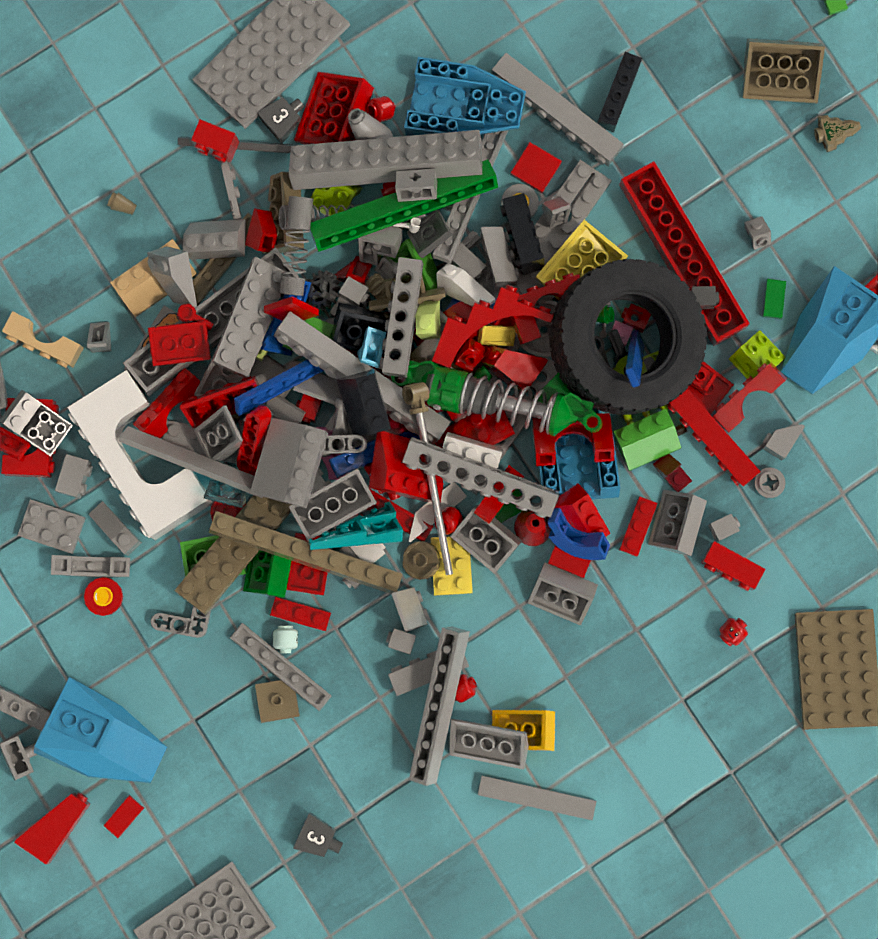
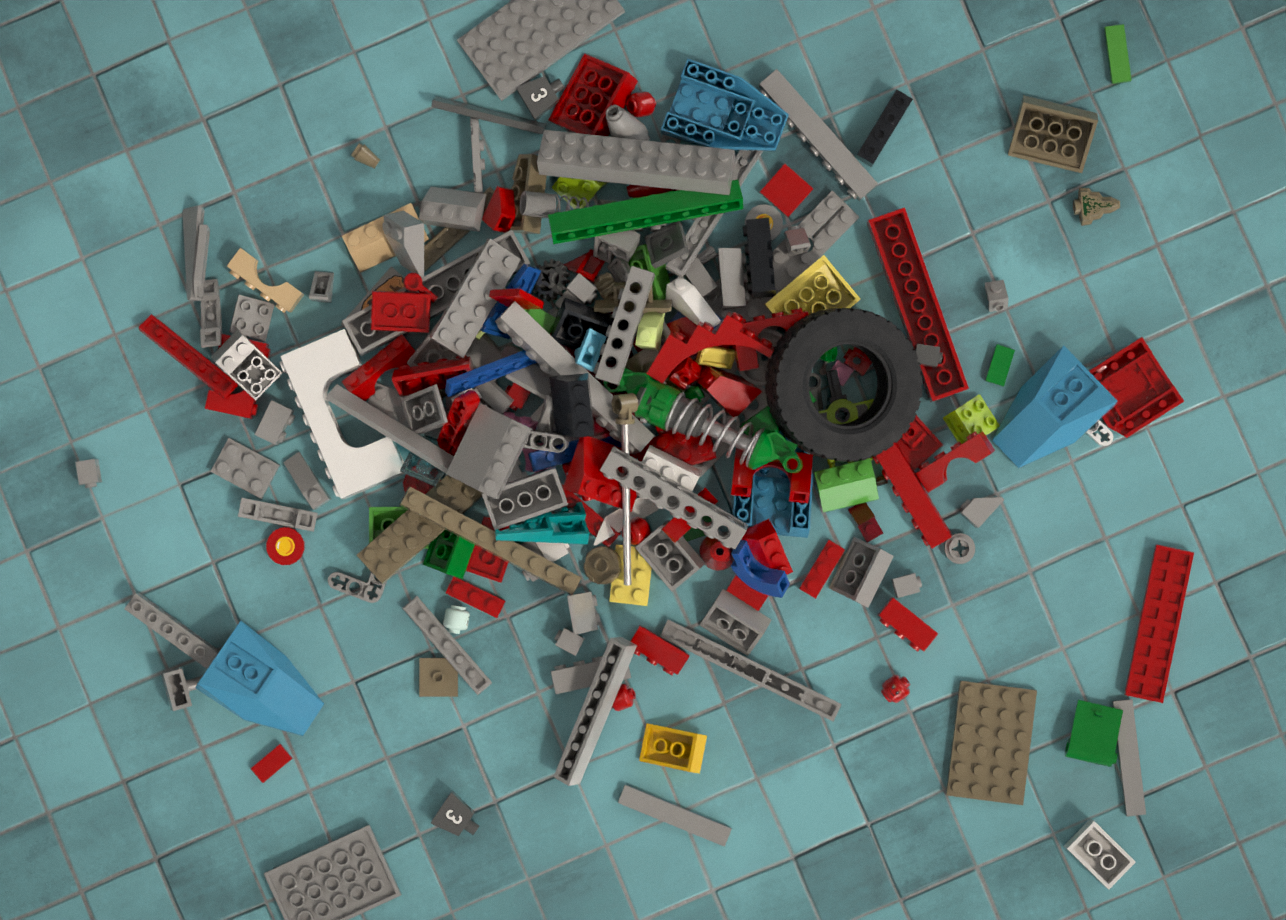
camera: 10 degrees right, 5 degrees up
(35, 377) = (252, 317): none -> light grey hinge
(52, 830) = (198, 766): red slope -> none
(215, 141) = (468, 112): red brick -> none
(298, 218) = (539, 209): light grey piece -> none
(413, 225) = (648, 232): white hand -> none
(416, 185) = (661, 195): light grey brick -> none
(488, 743) = (636, 756): light grey slope -> none
(492, 634) = (659, 651): none -> red slope
(587, 638) = (750, 670): none -> light grey slope
(635, 358) = (847, 406): blue tile -> none

